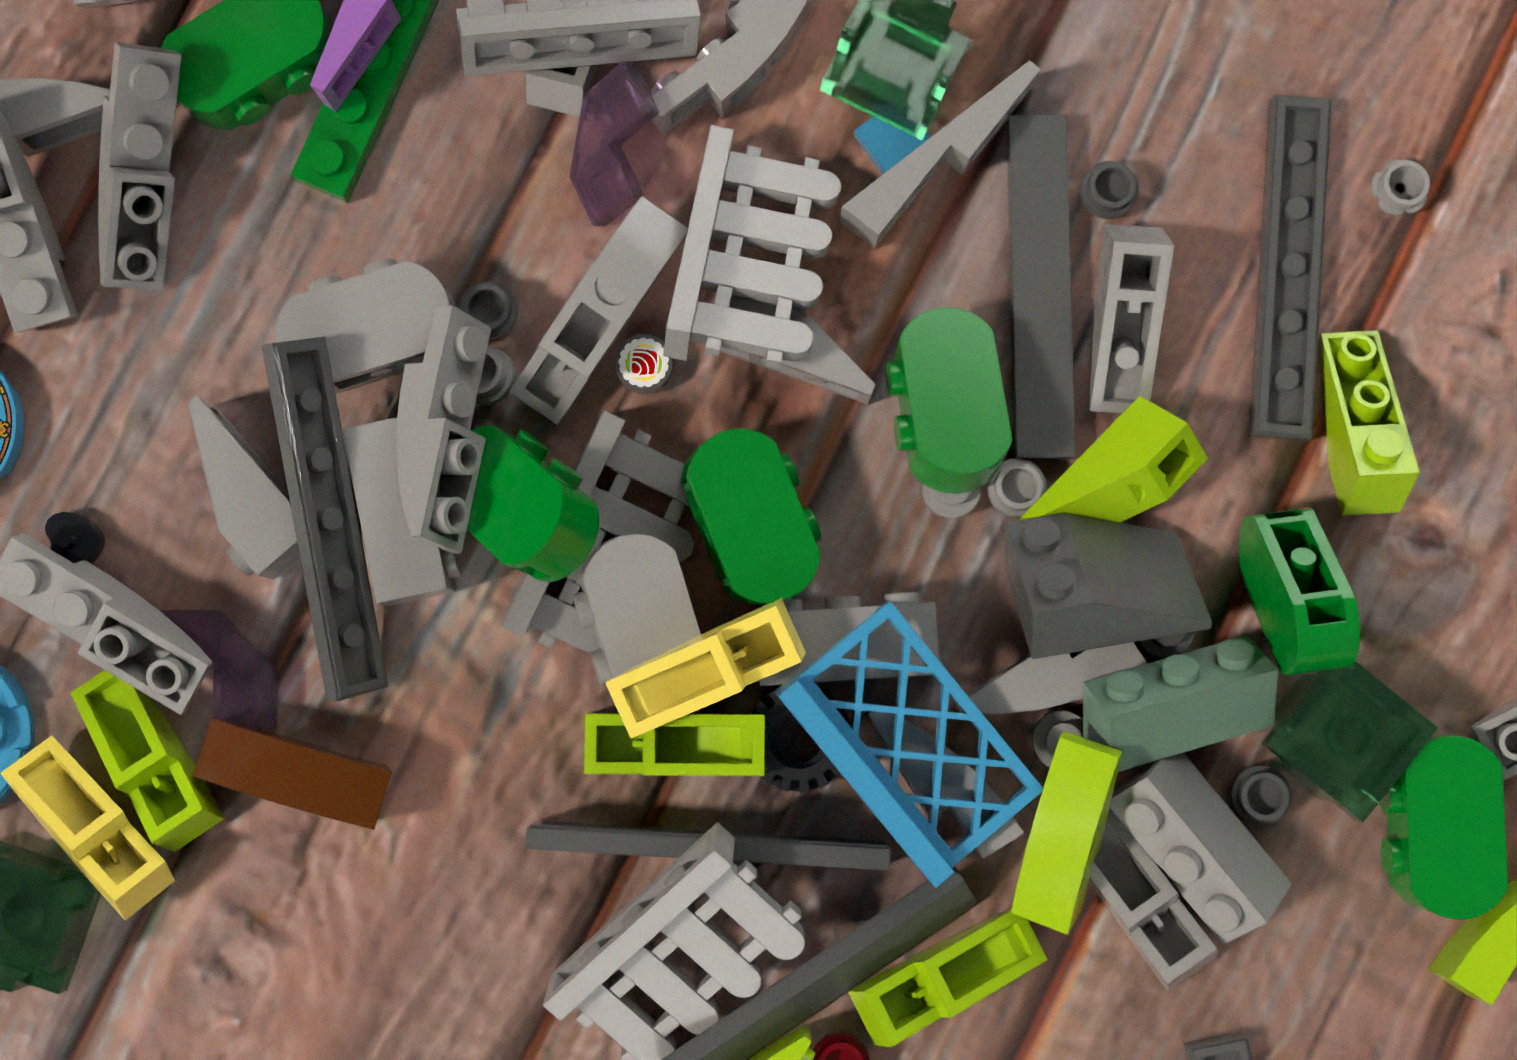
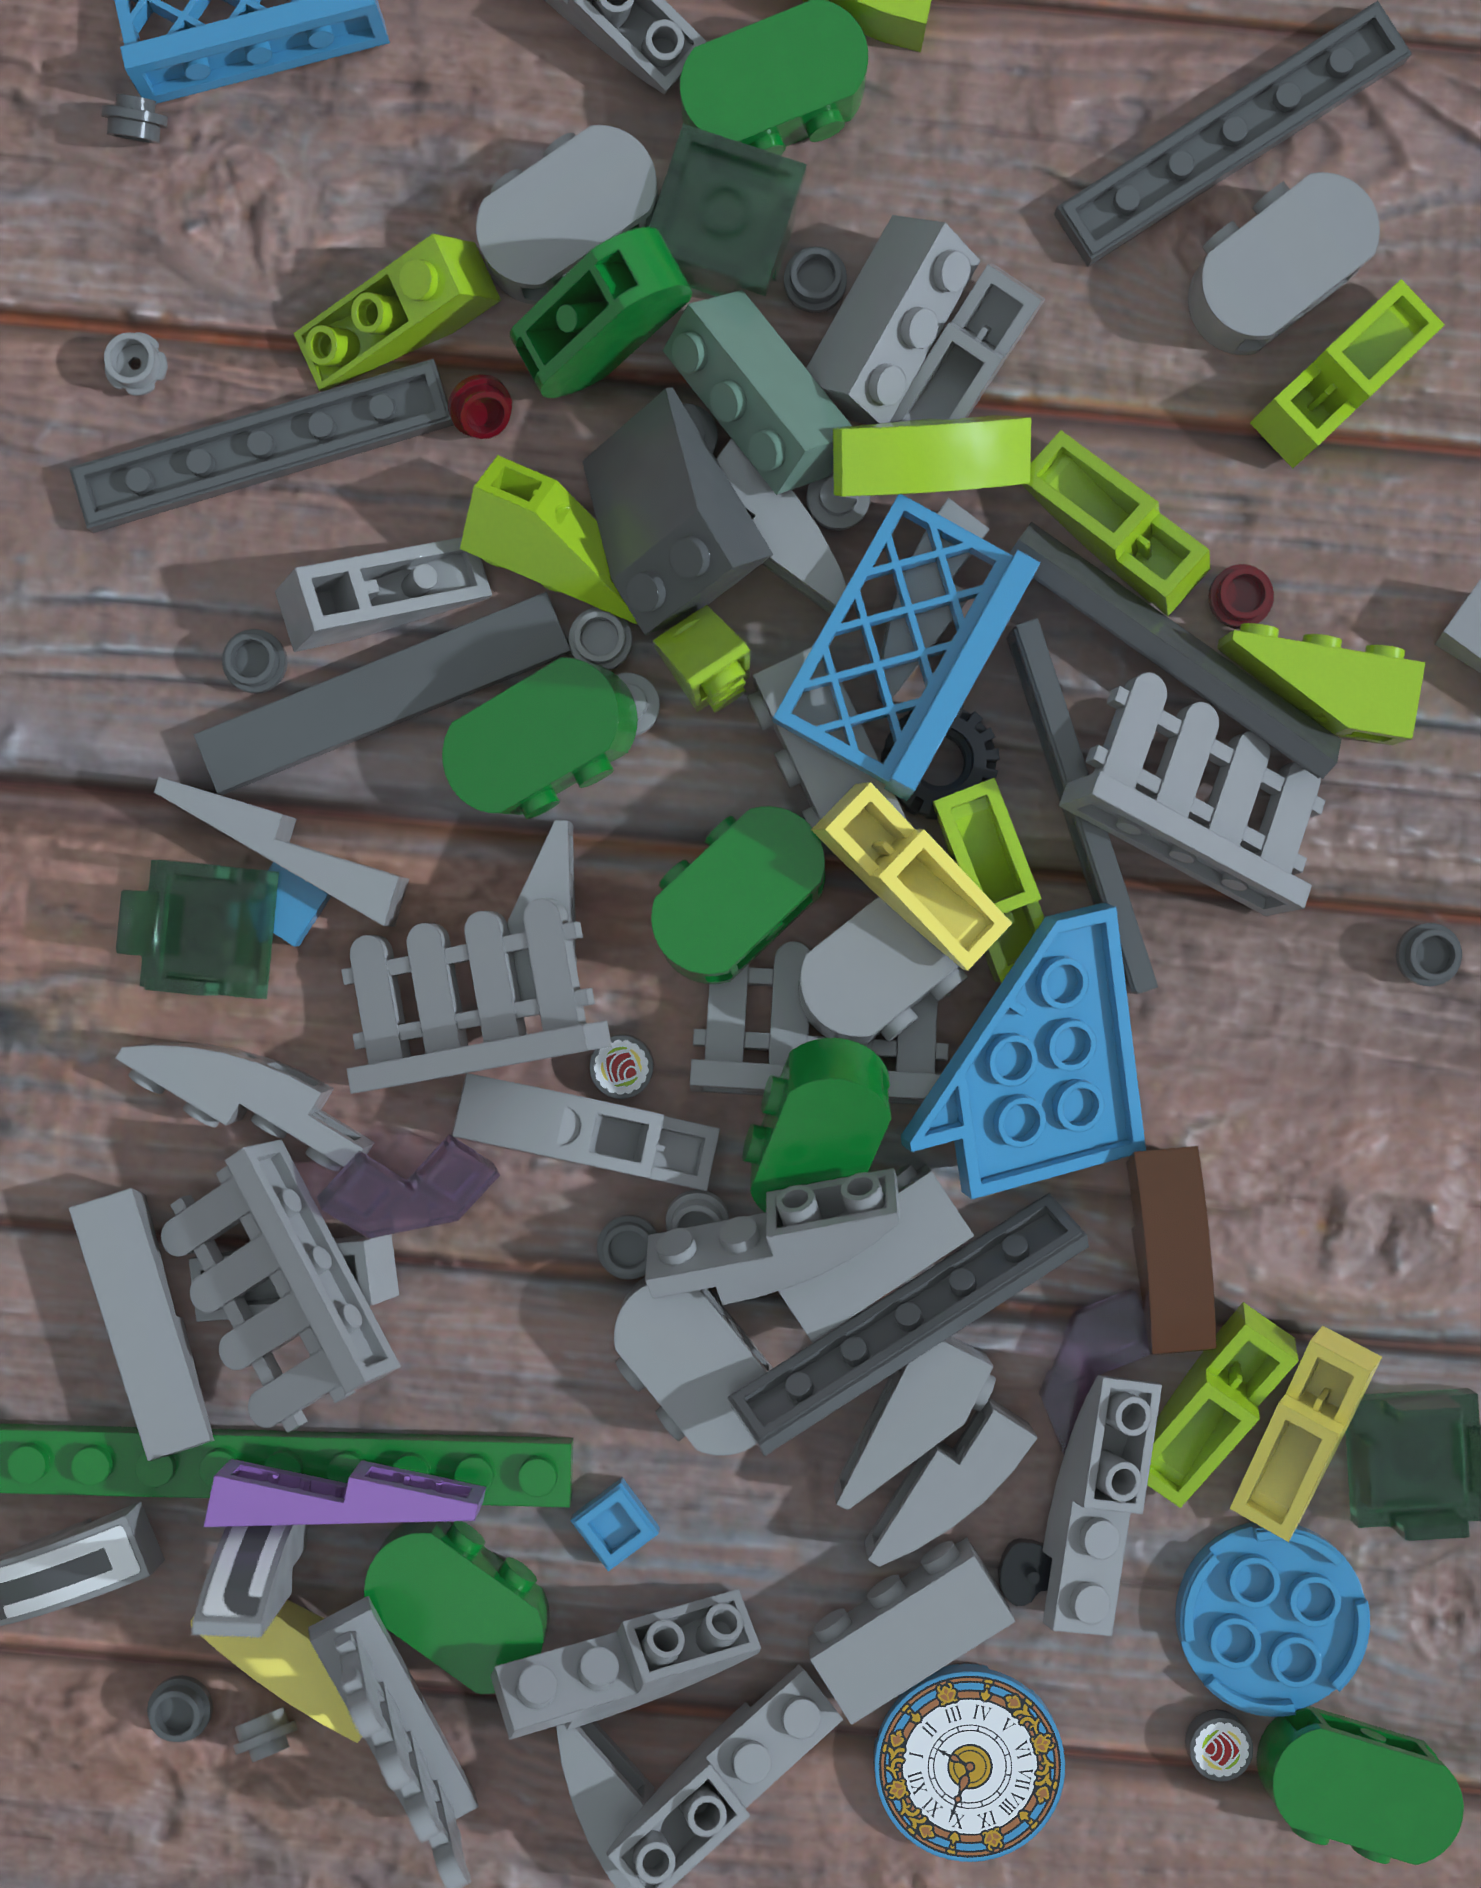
camera: 115 degrees left, 5 degrees up
(66, 418) = (908, 1629): none -> light grey brick
(175, 503) = (950, 1483): none -> light grey slope
(260, 209) = (615, 1524): none -> dark azure tile
(496, 723) = (1046, 1066): none -> dark azure wing
(963, 564) = (706, 659): none -> lime slope
(1256, 462) = (480, 406): none -> dark red plate
(1403, 600) = (563, 207): none -> light grey brick

